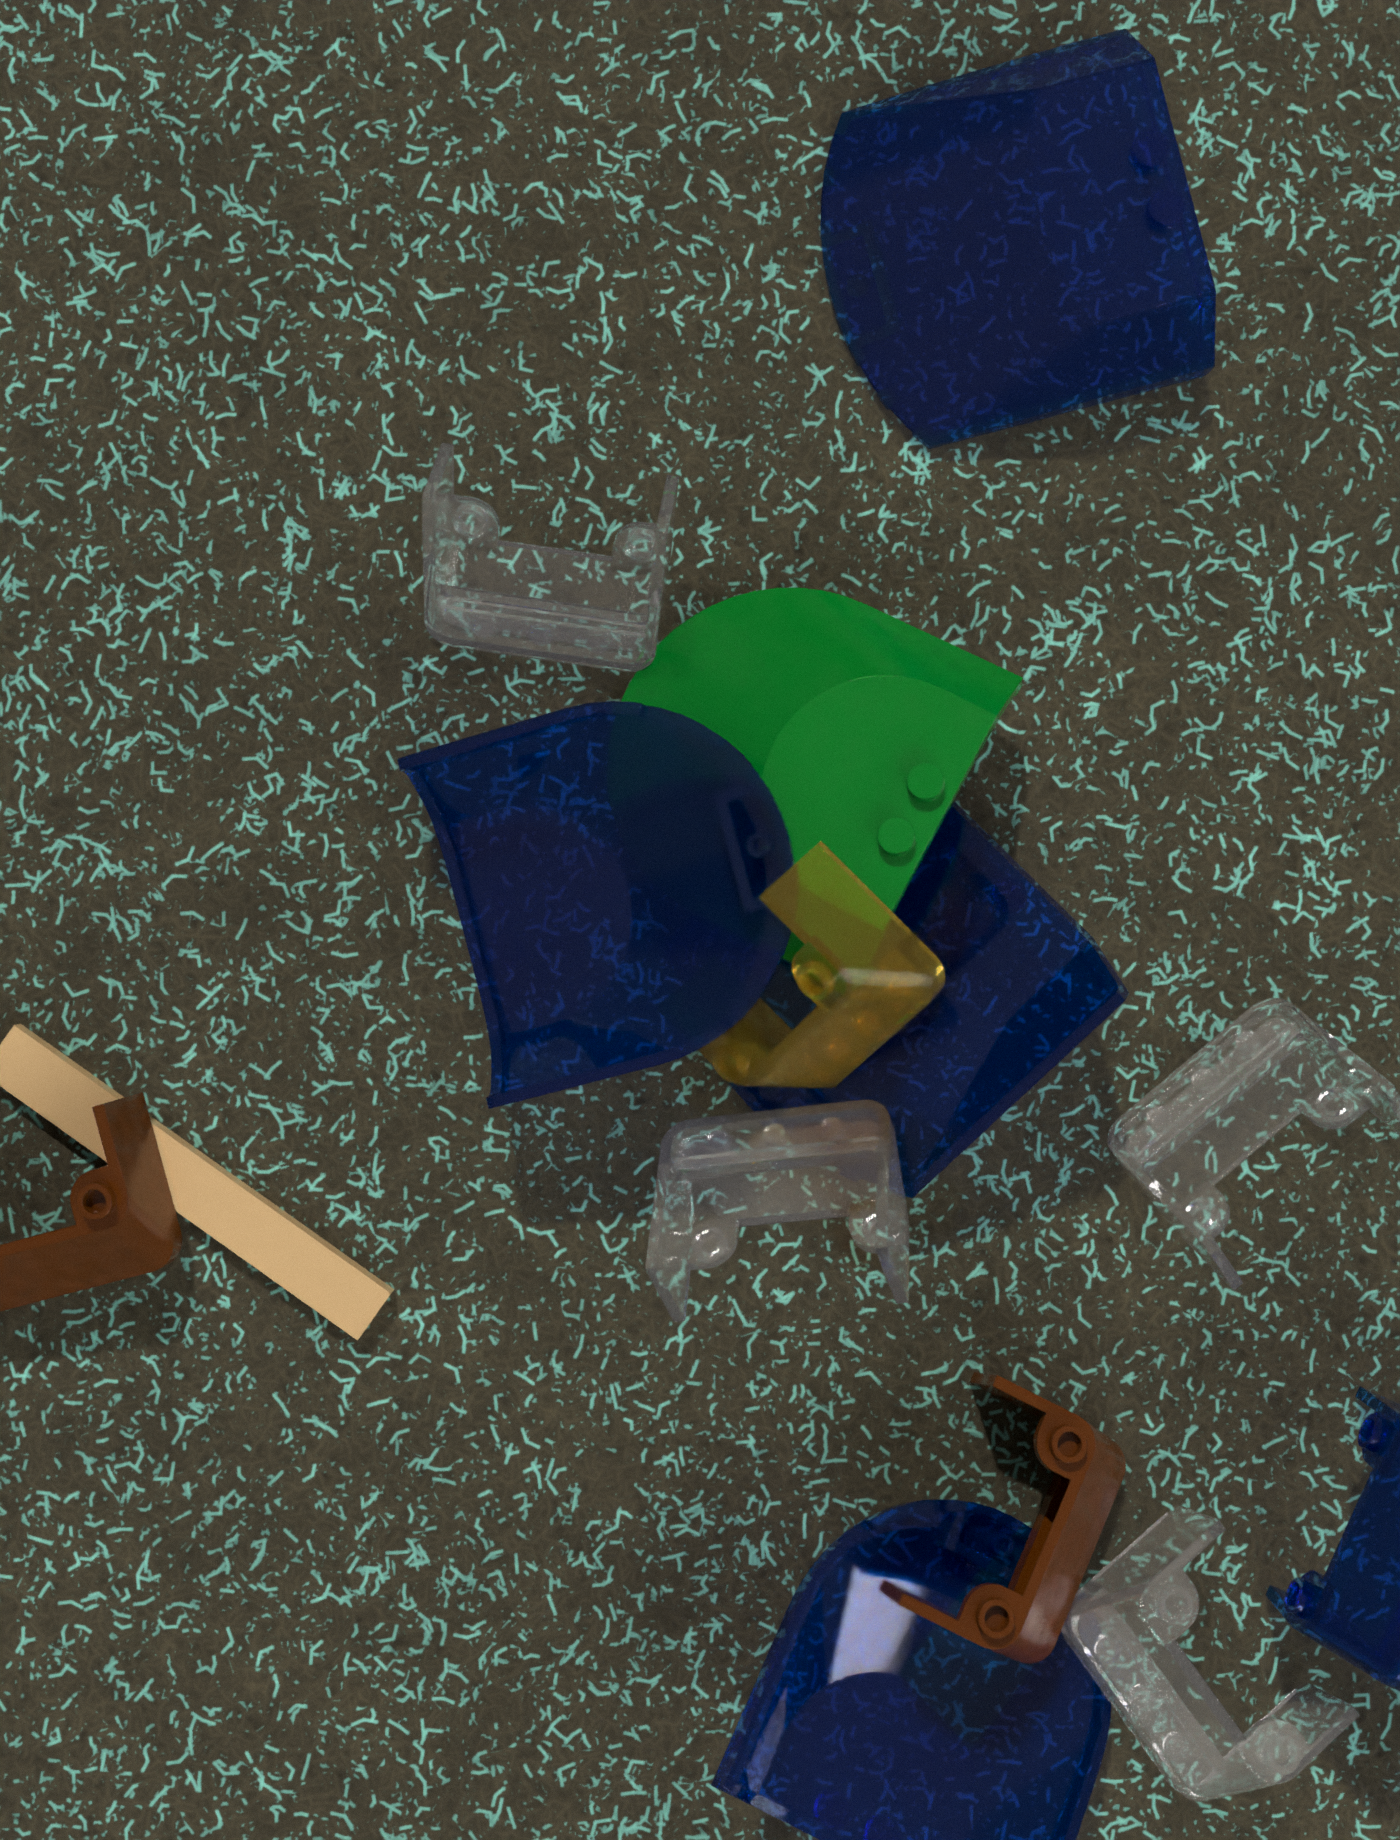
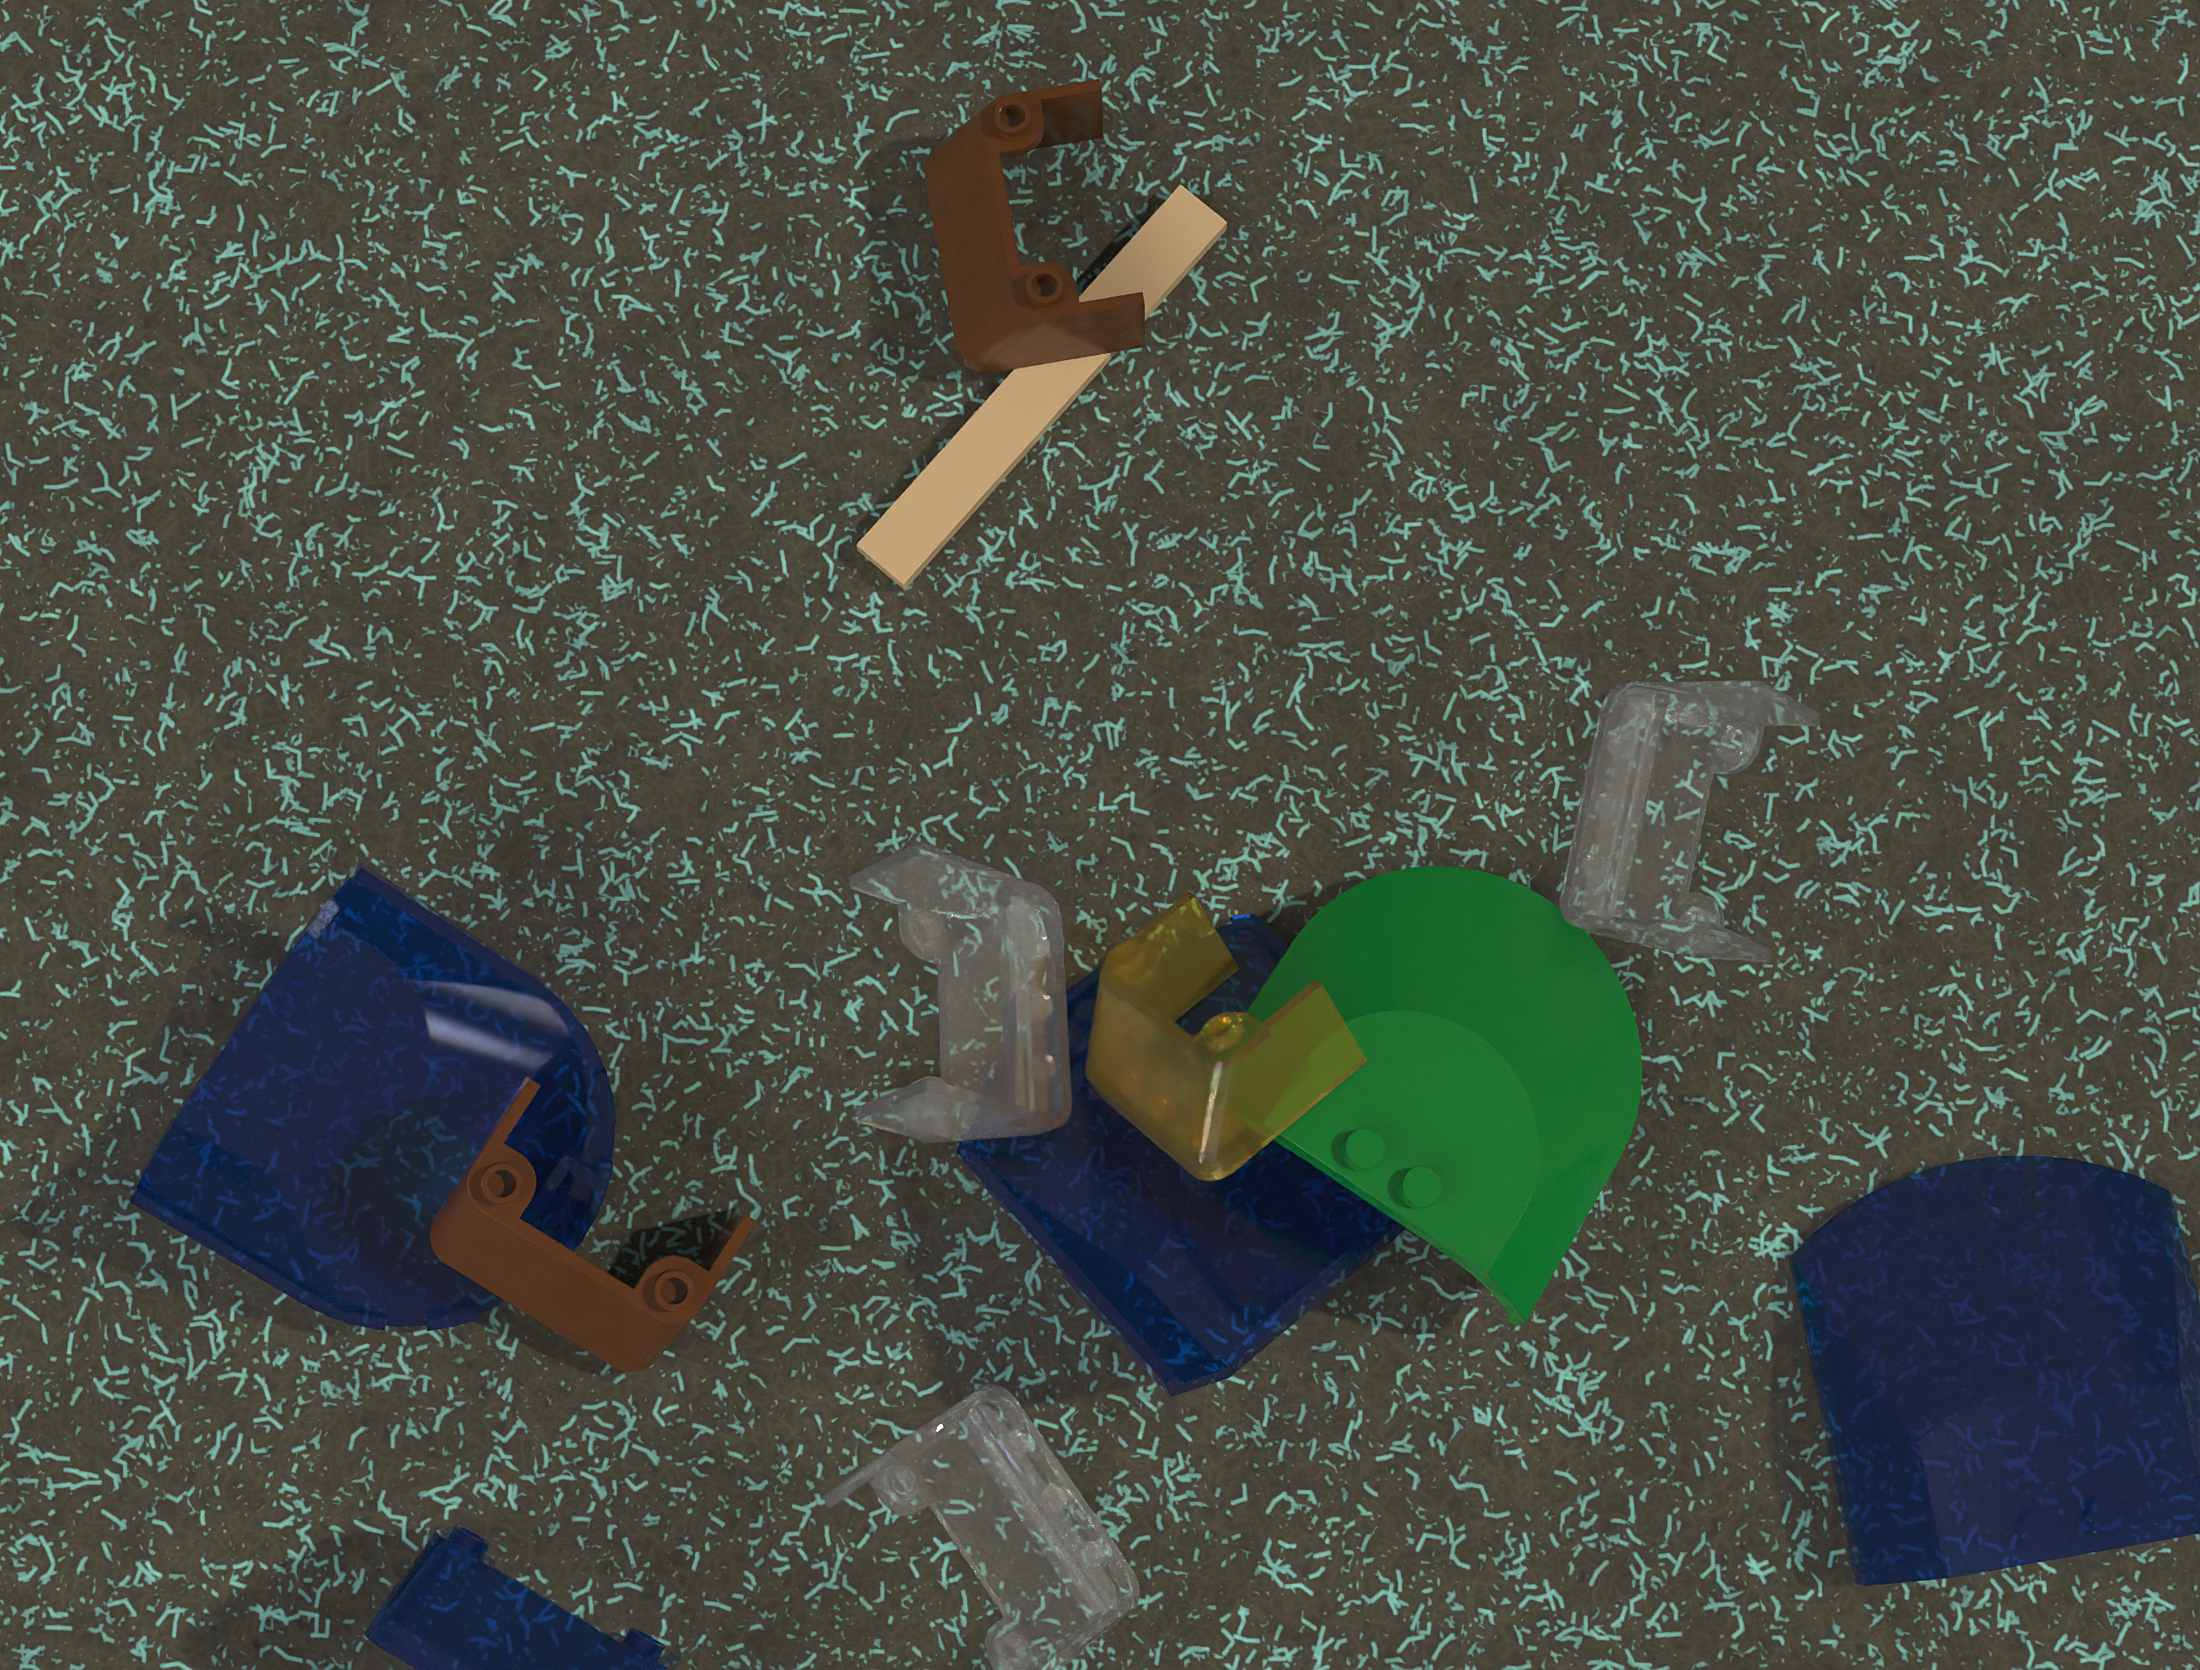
camera: 90 degrees right, 10 degrees down
(606, 887) = (1330, 840): clear blue windscreen -> none
(1126, 1638) = (432, 1343): clear windscreen -> none

